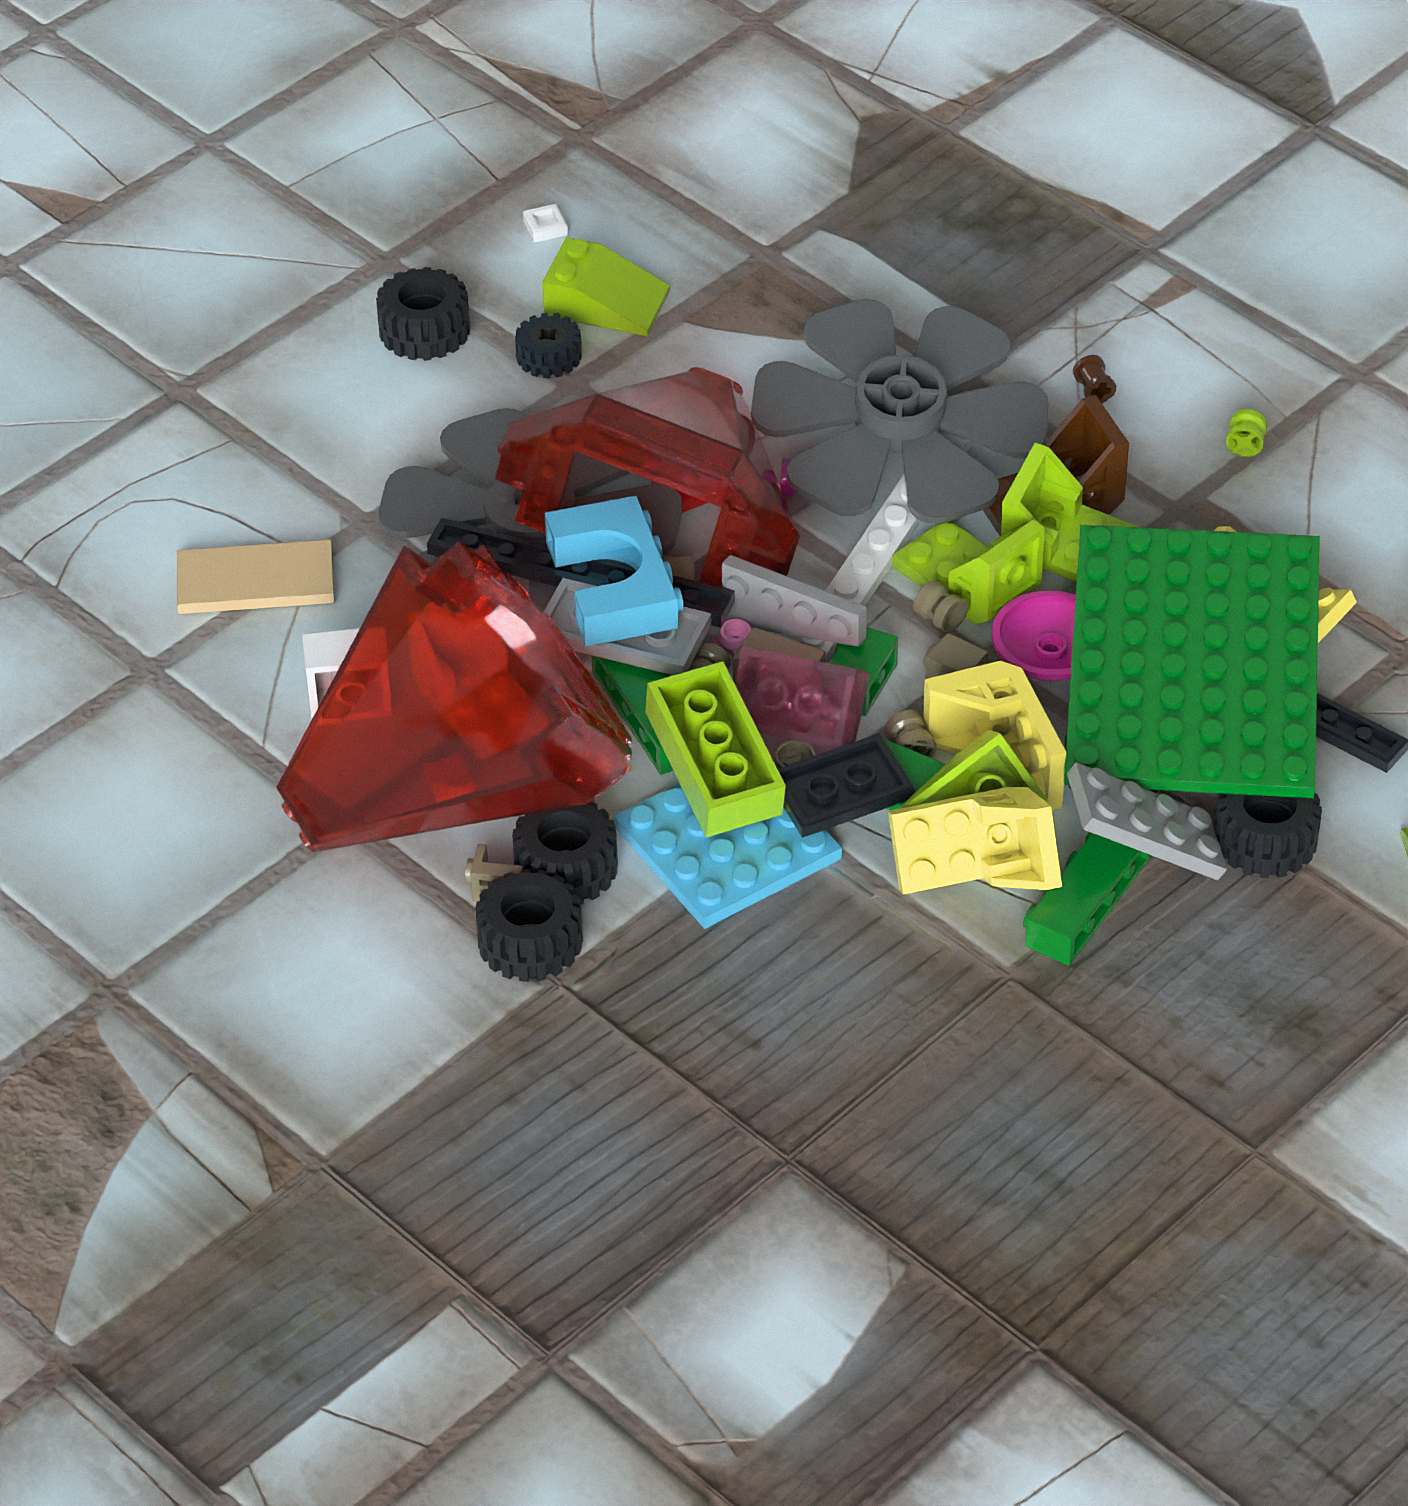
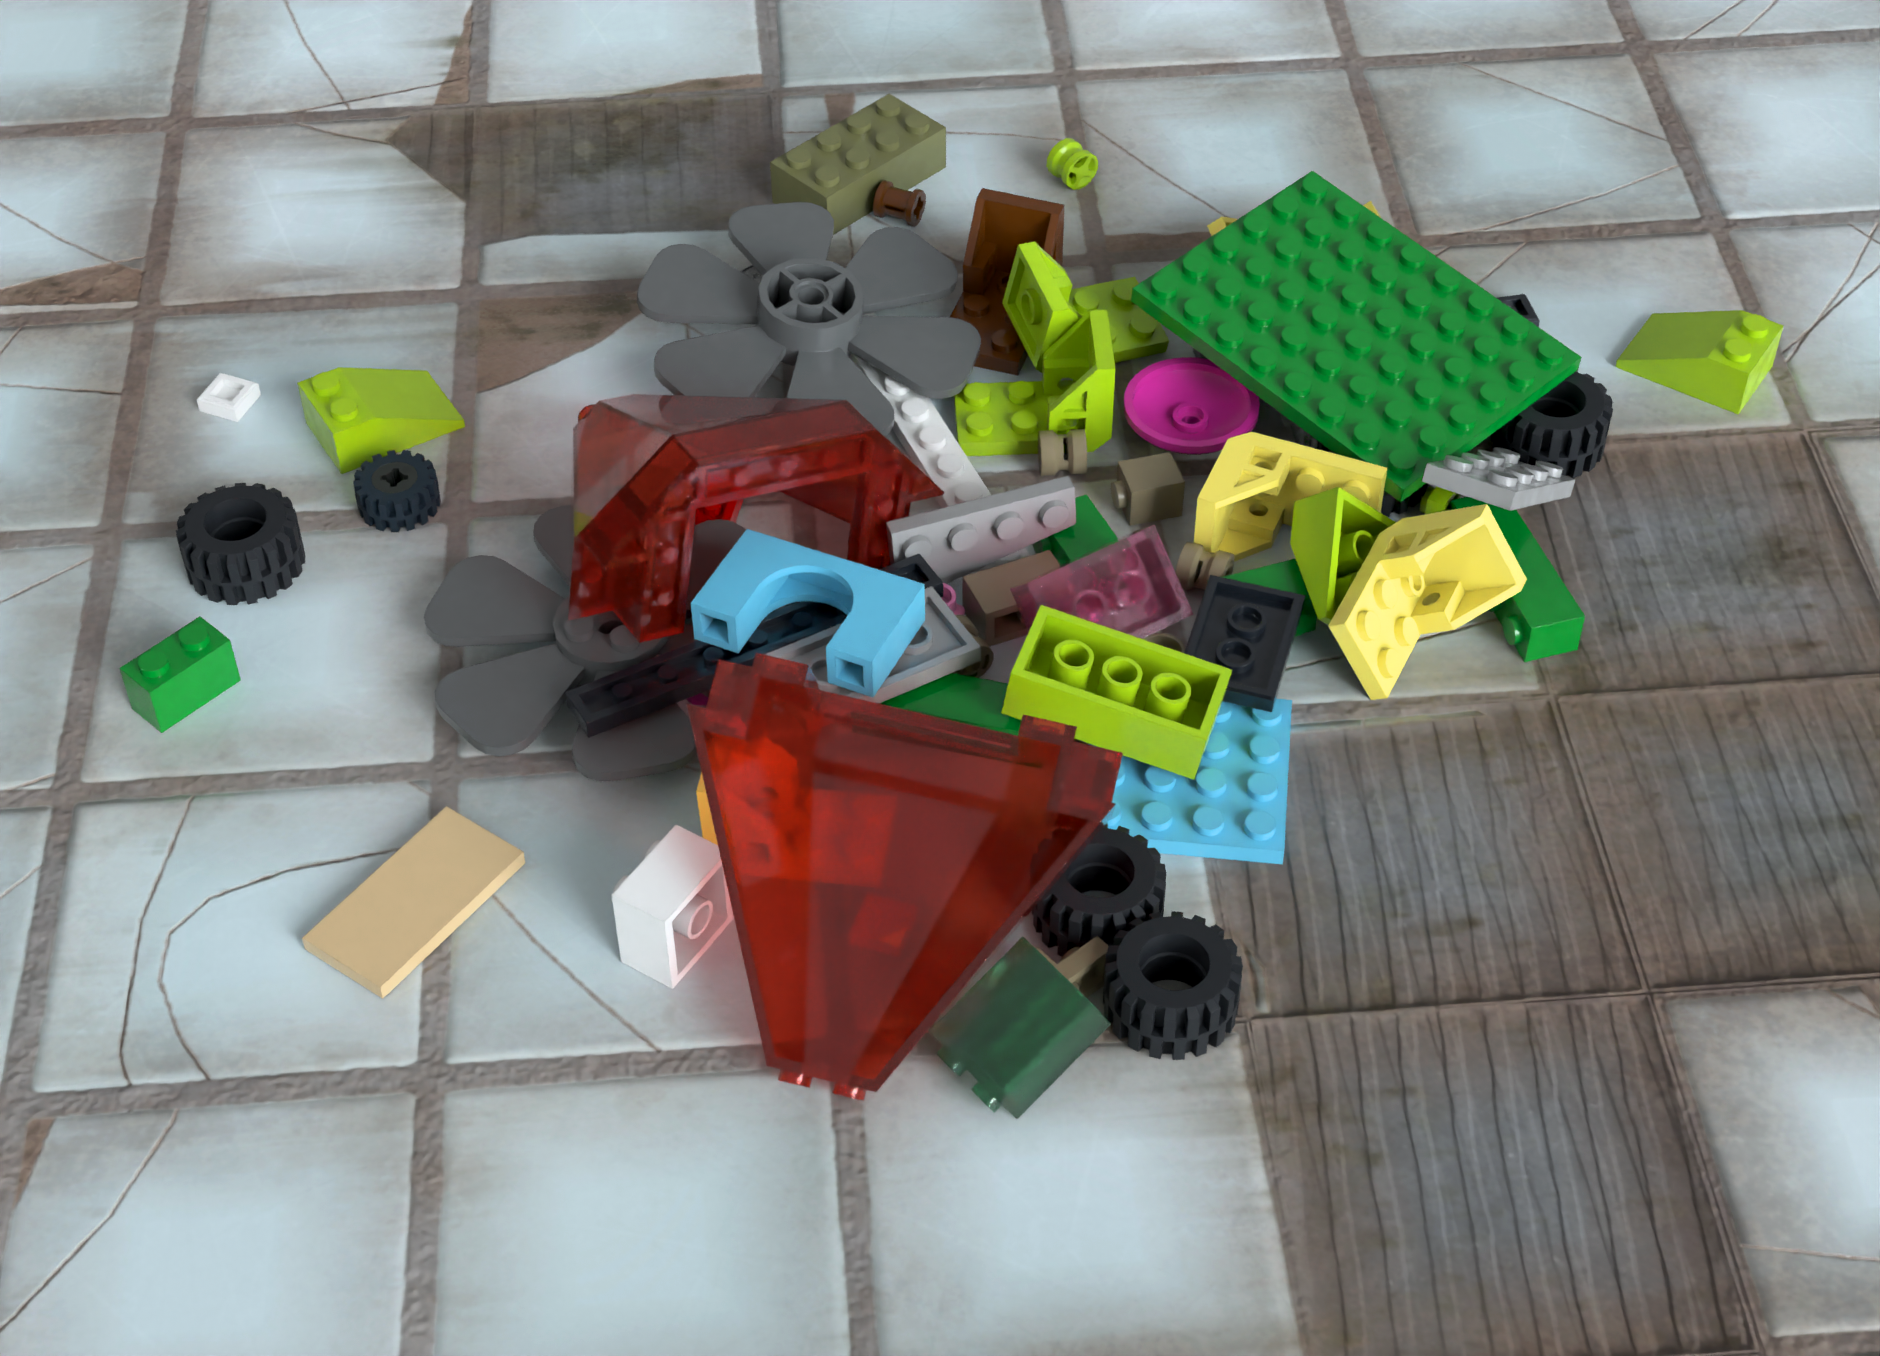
camera: 50 degrees left, 0 degrees up
(300, 365) = (180, 674): none -> green brick
(417, 875) = (1018, 1029): none -> clear green brick
(1127, 331) = (852, 158): none -> olive brick

